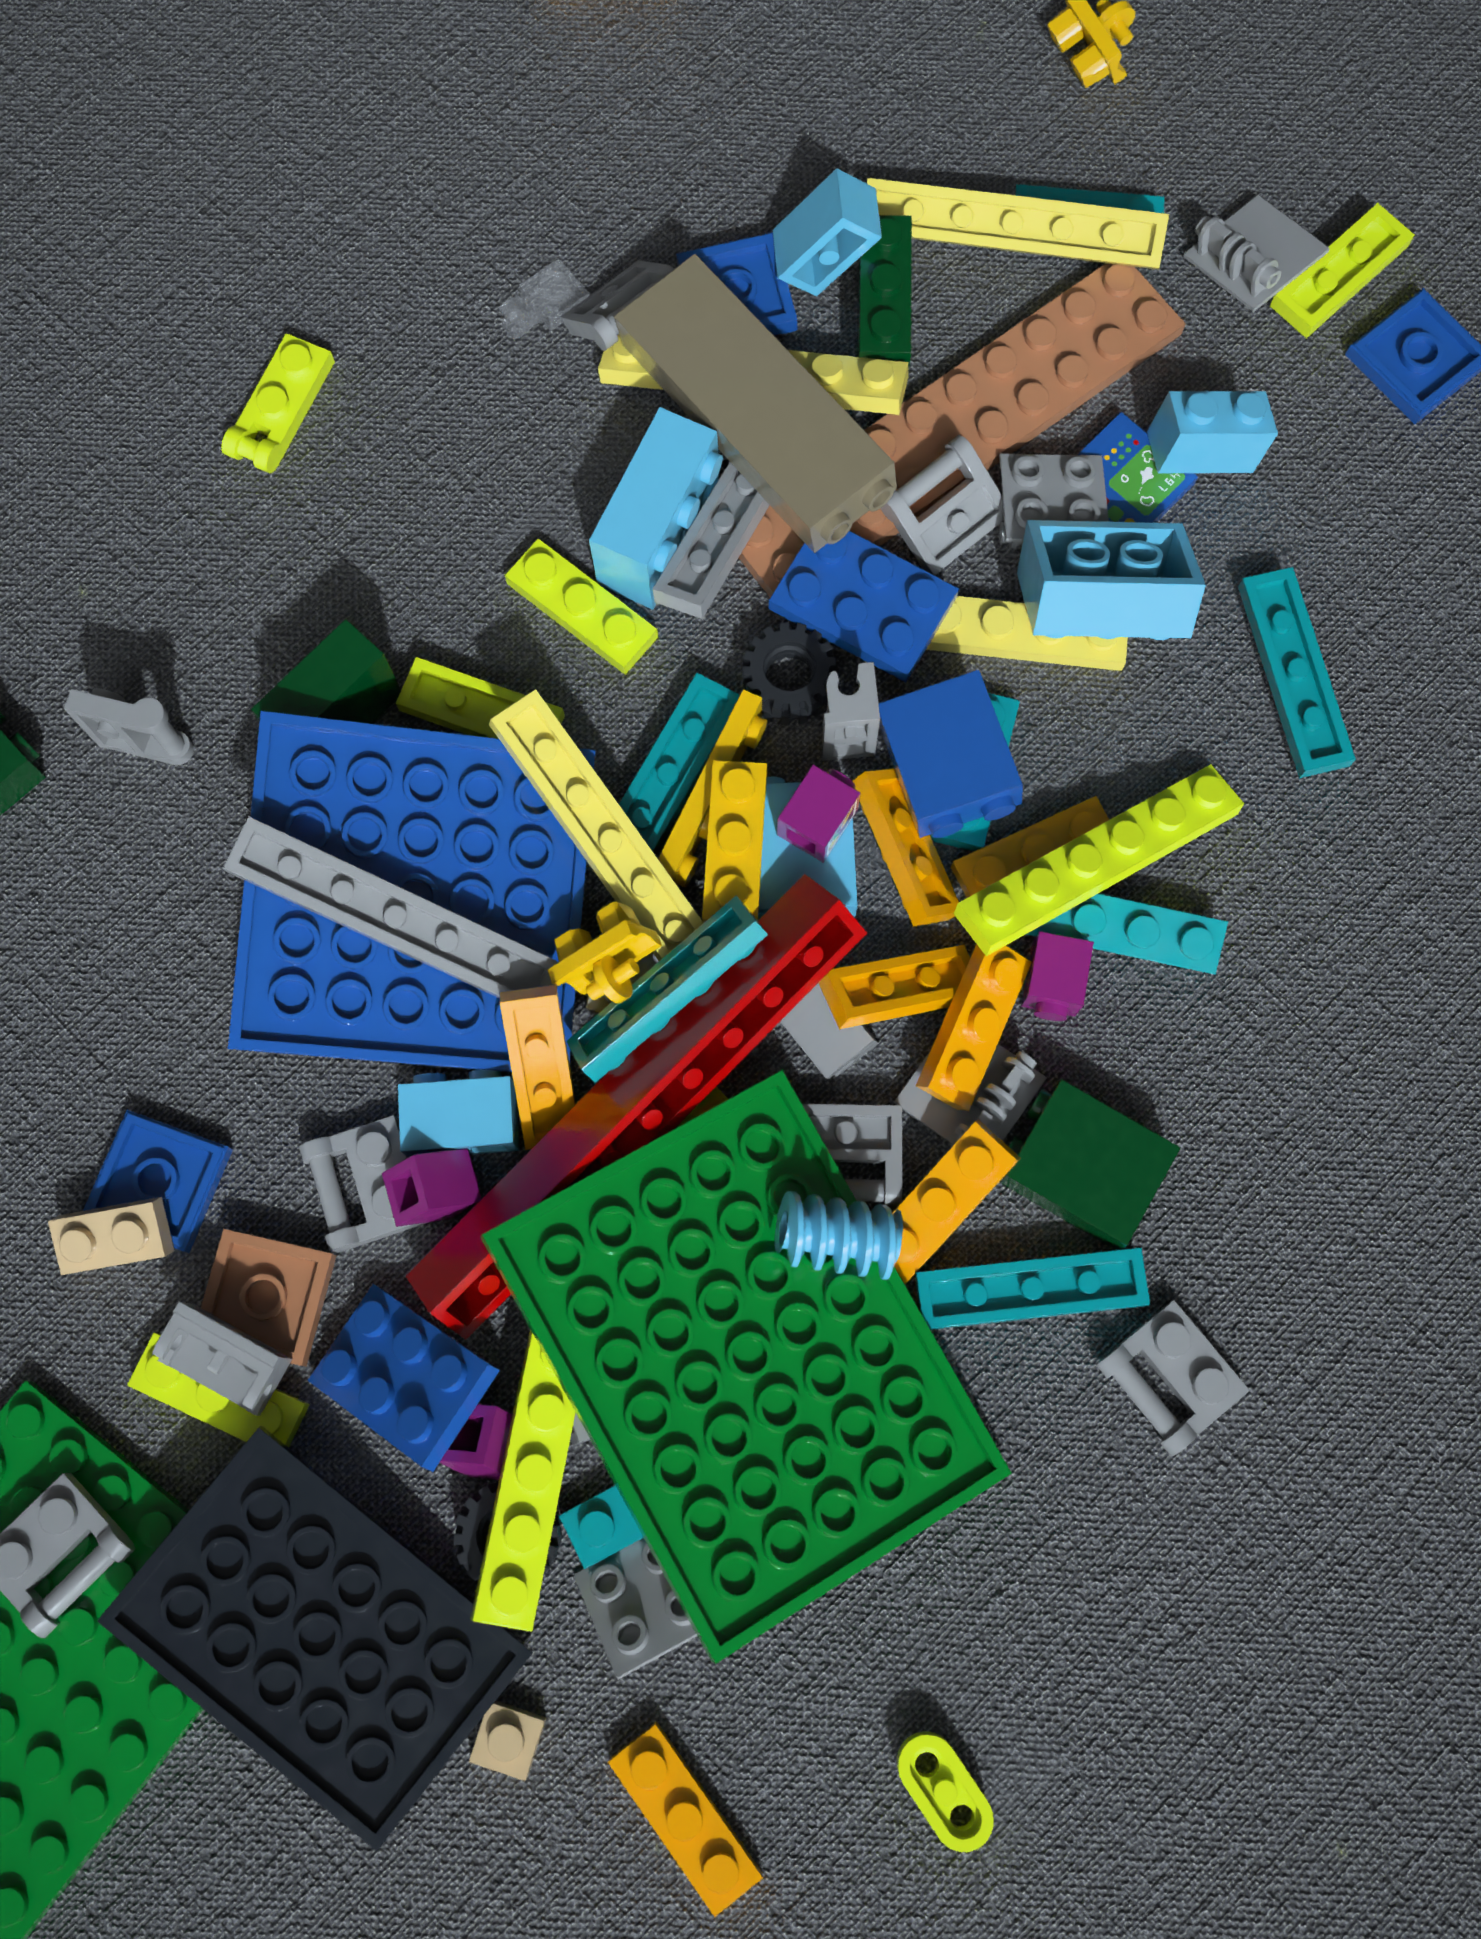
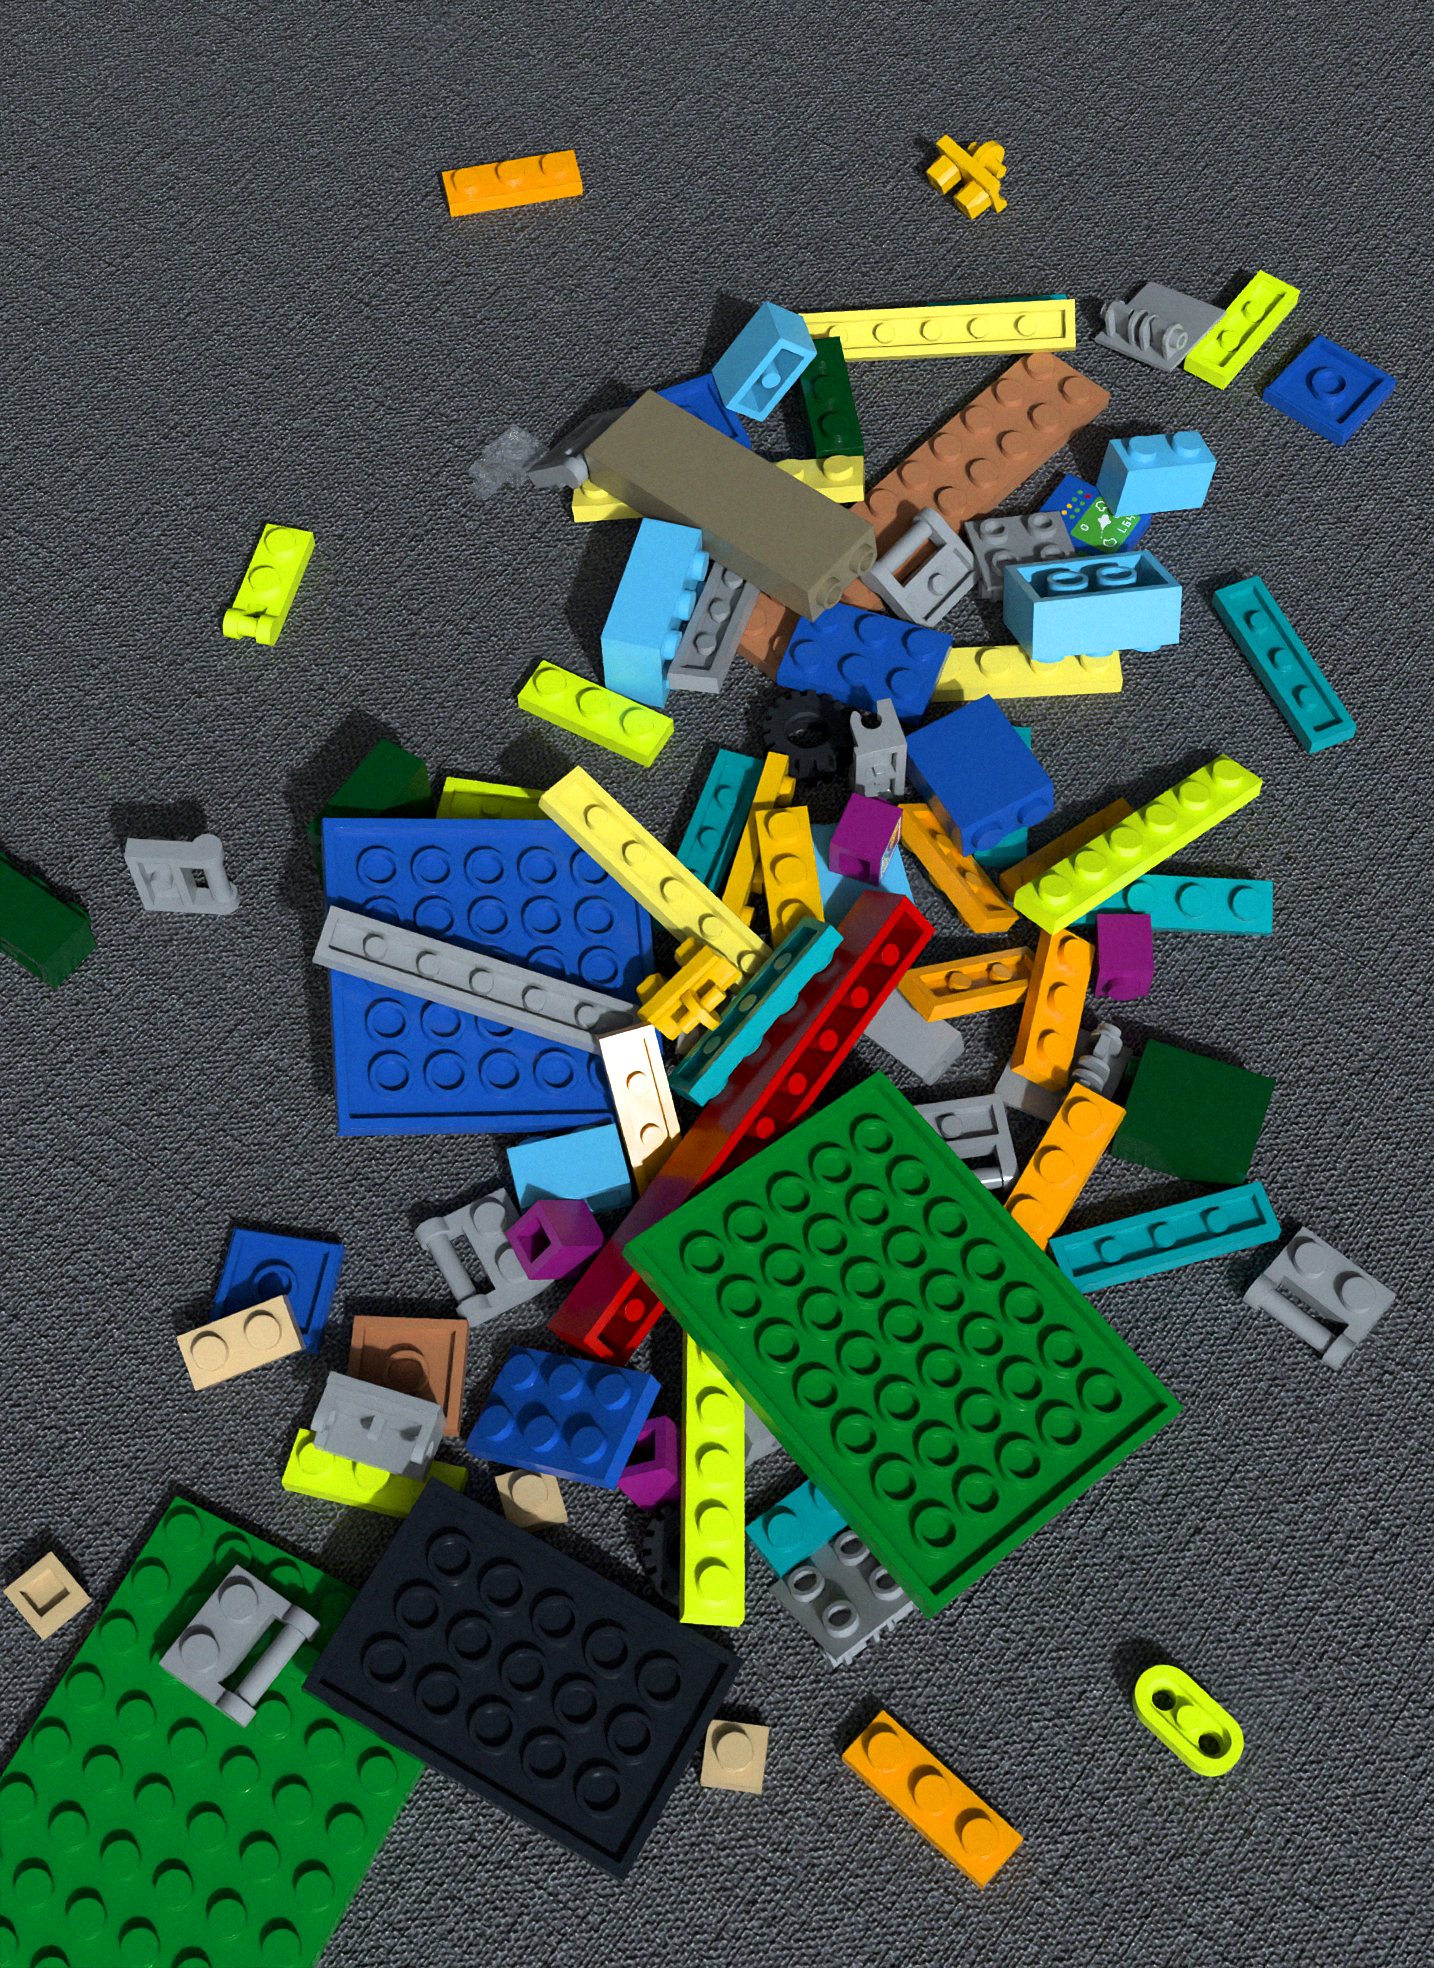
camera: 10 degrees left, 15 degrees down
(359, 1448) = (531, 1499): none -> tan plate
(839, 1233) = (969, 1196): medium azure piece -> none

